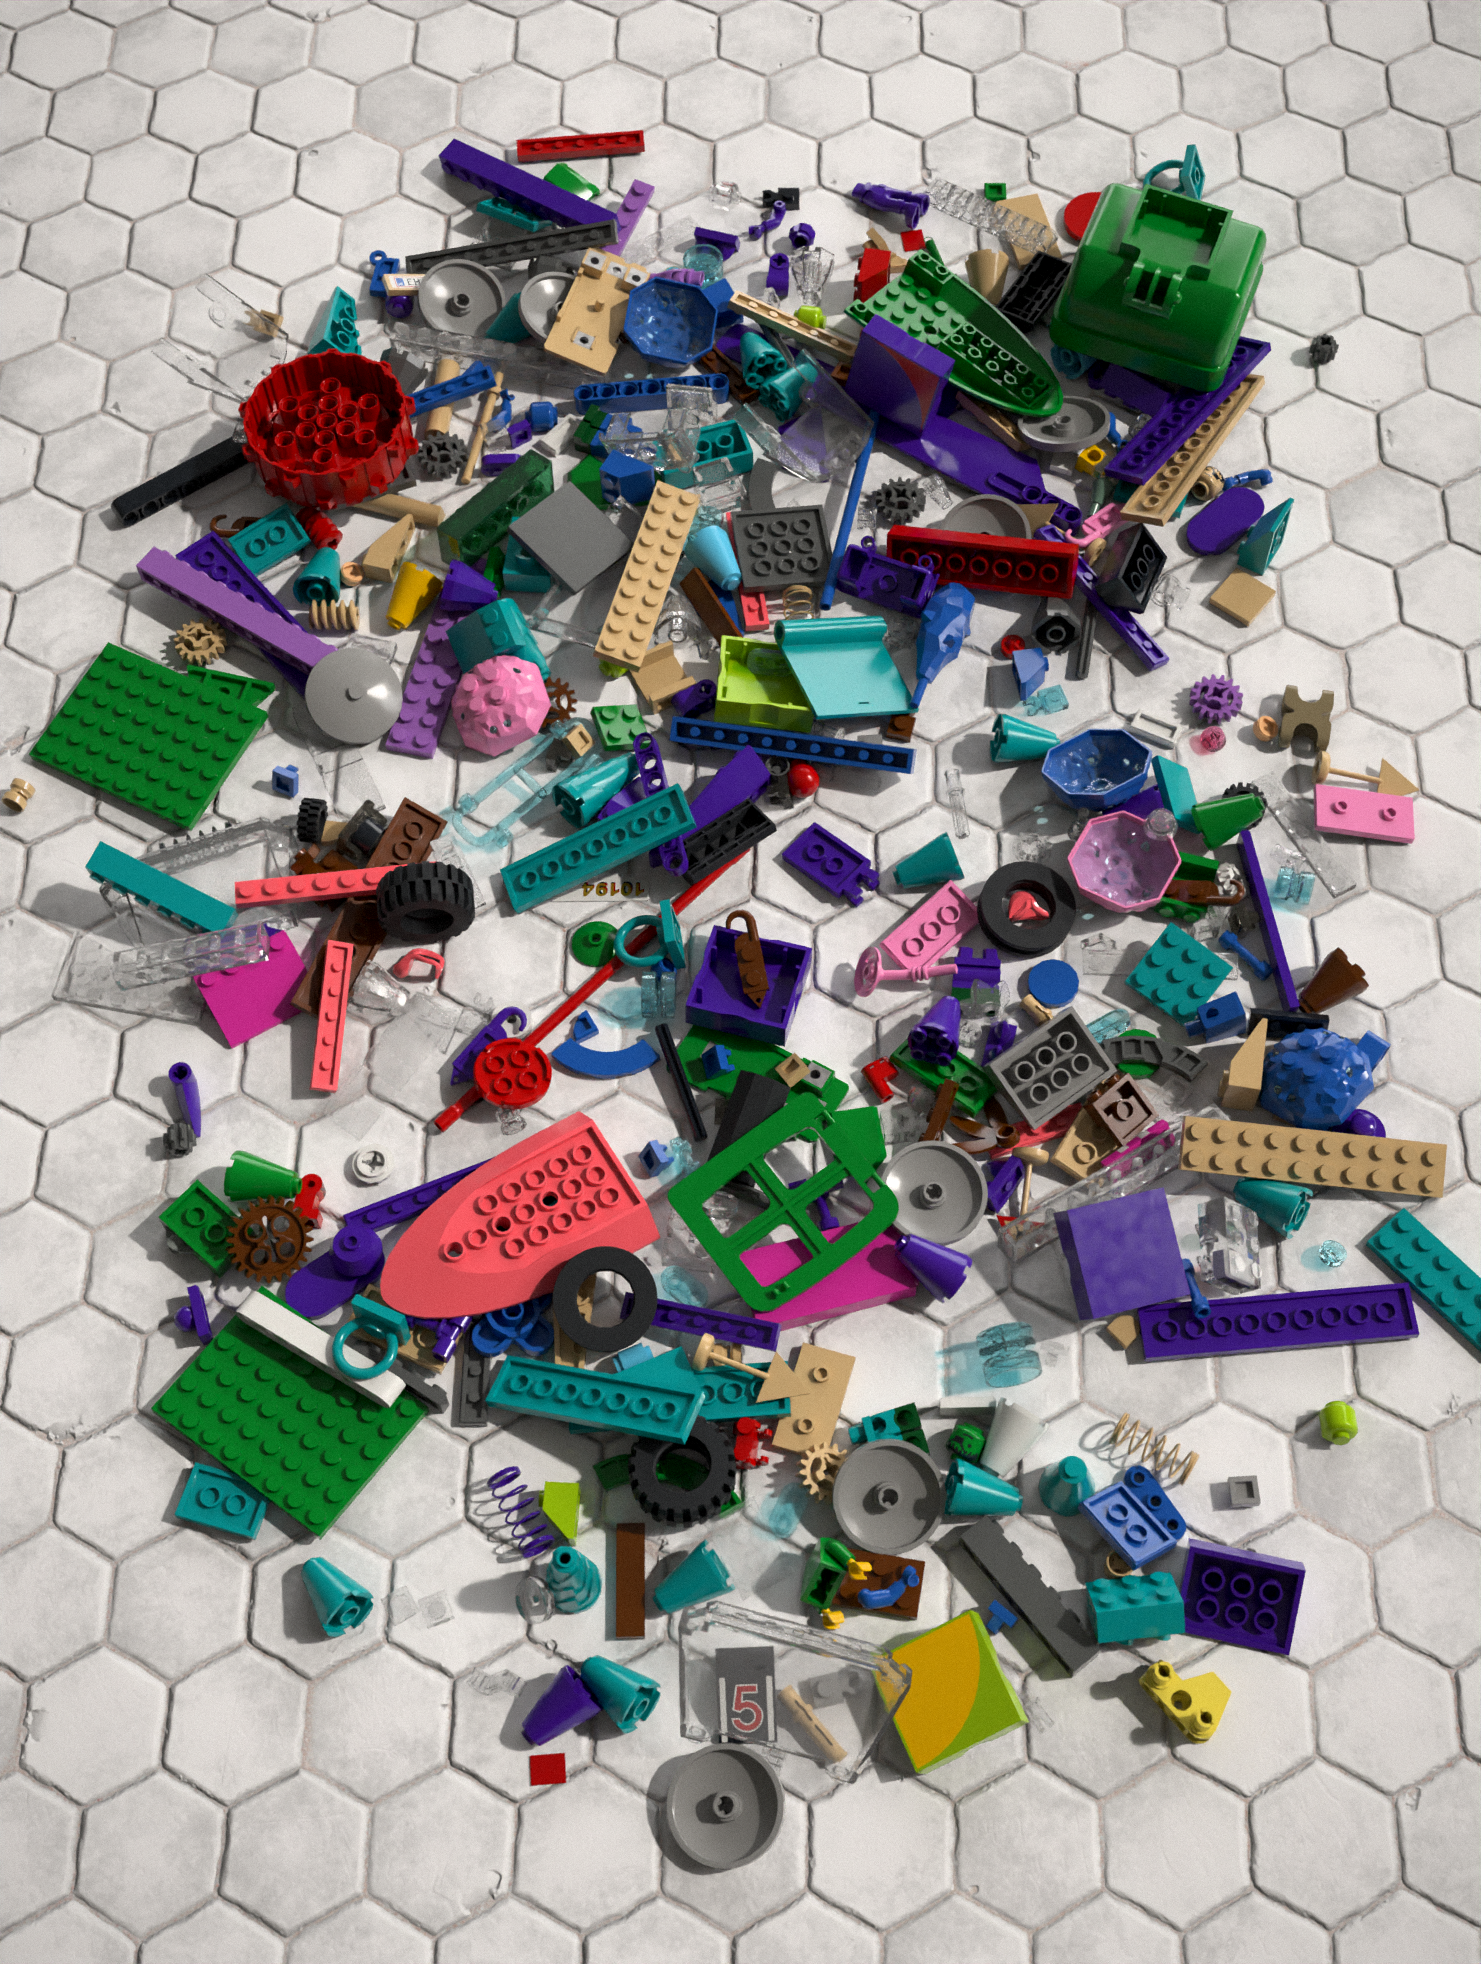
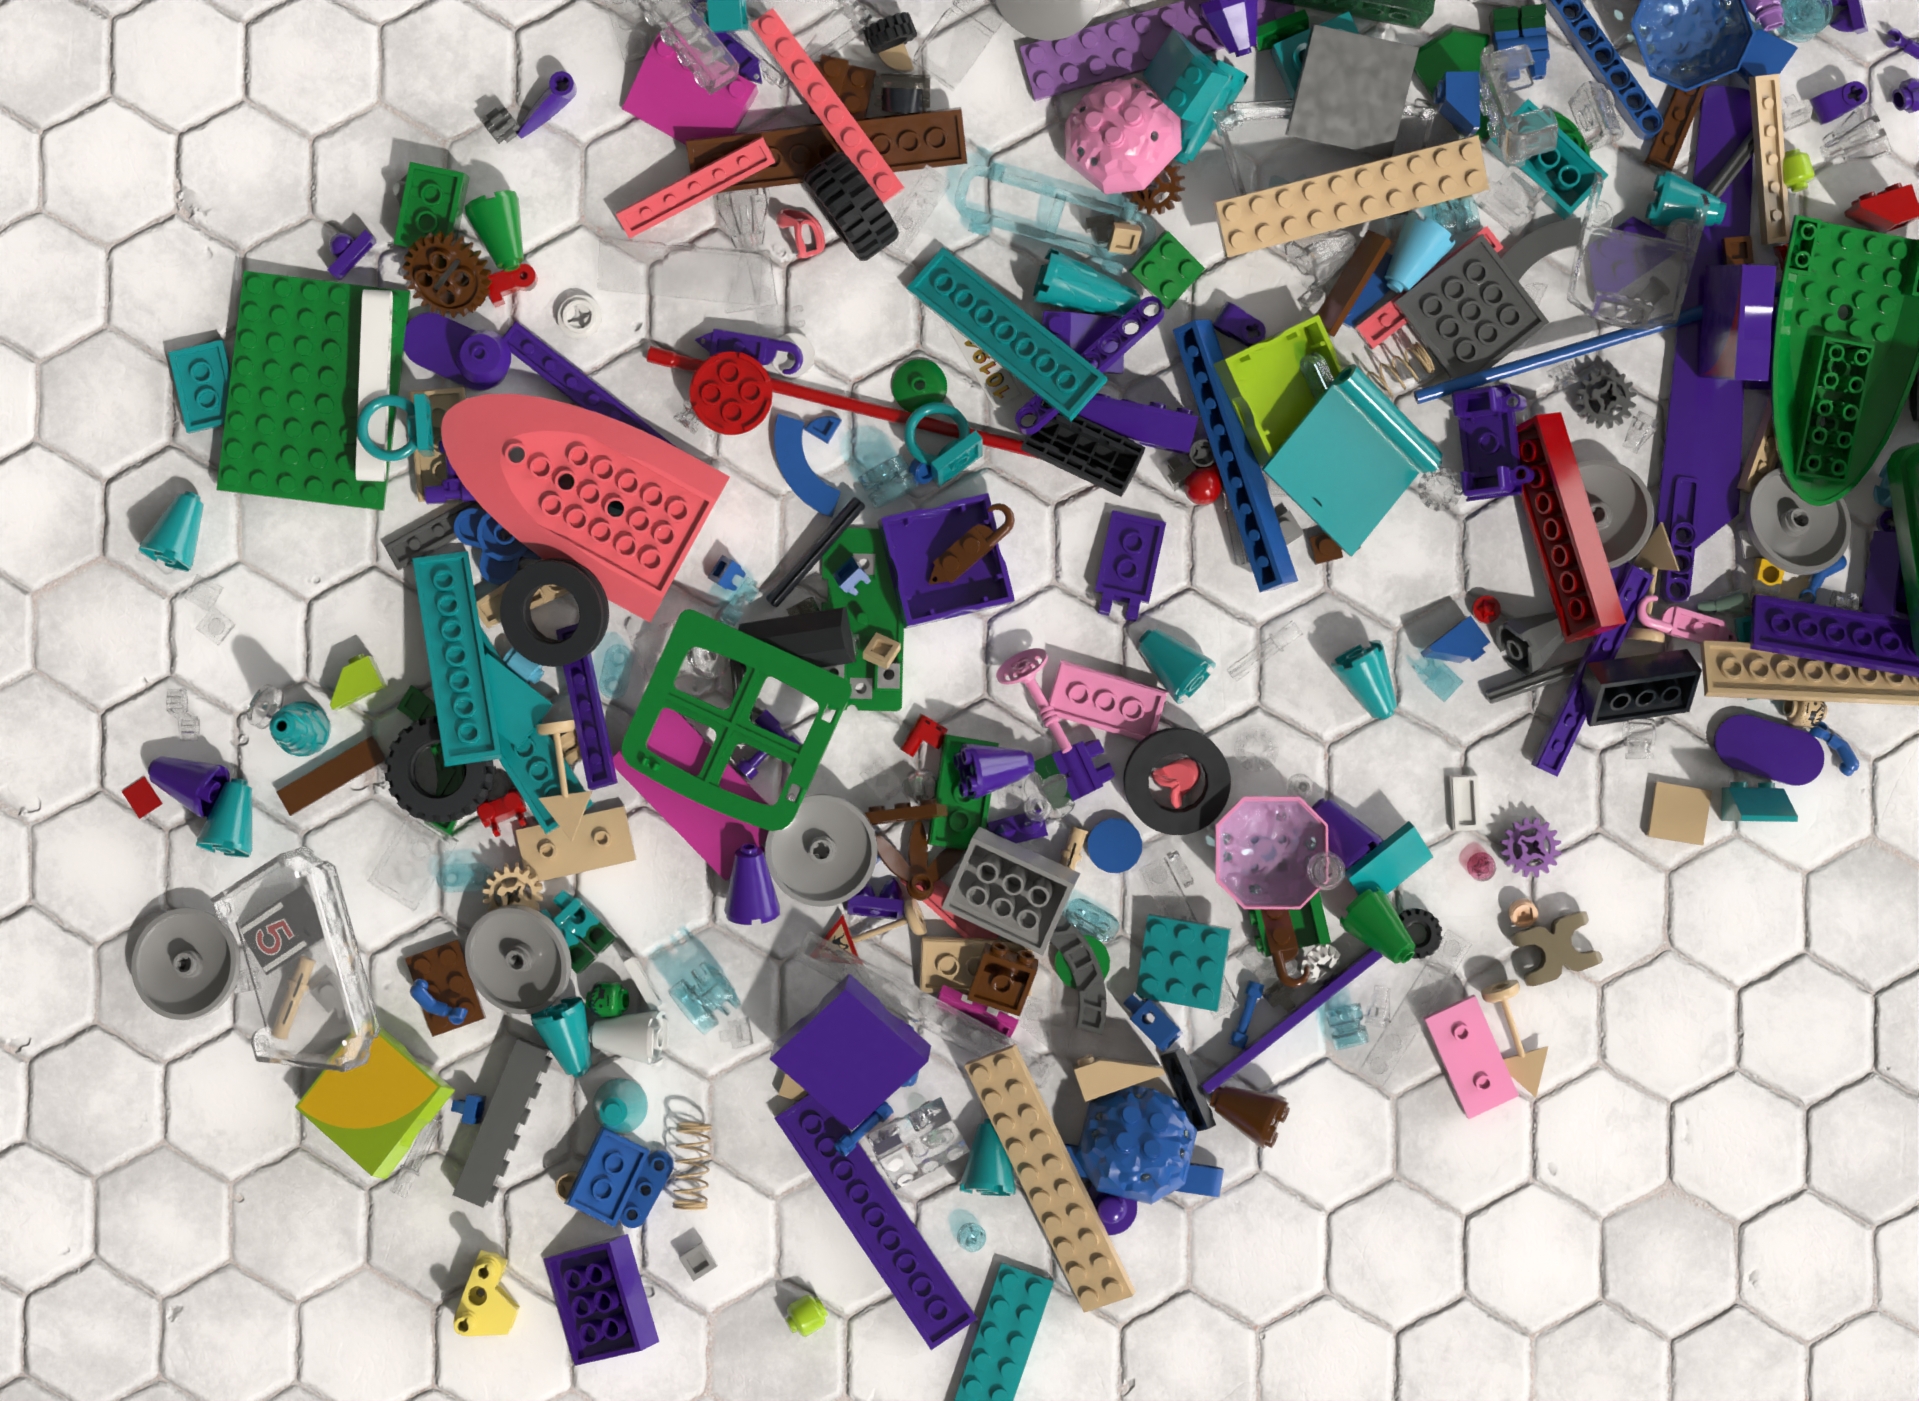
camera: 60 degrees right, 25 degrees up
(305, 857) = (845, 53): reddish brown plate -> none
(414, 1381) = (395, 479): dark grey plate -> none
(533, 1551) = (313, 679): dark purple piece -> none
(661, 677) = (1250, 278): tan panel -> none
(693, 1581) = (356, 833): teal cone -> none
(759, 360) = (1701, 151): teal cone -> none
(824, 1575) = (420, 943): green torso -> none
(865, 1131) = (851, 748): green tile -> none
(941, 634) = (1452, 532): blue piece -> none
(1097, 768) = (1367, 773): clear light blue rock -> none
(1135, 1608) = (534, 1219): teal piece -> none

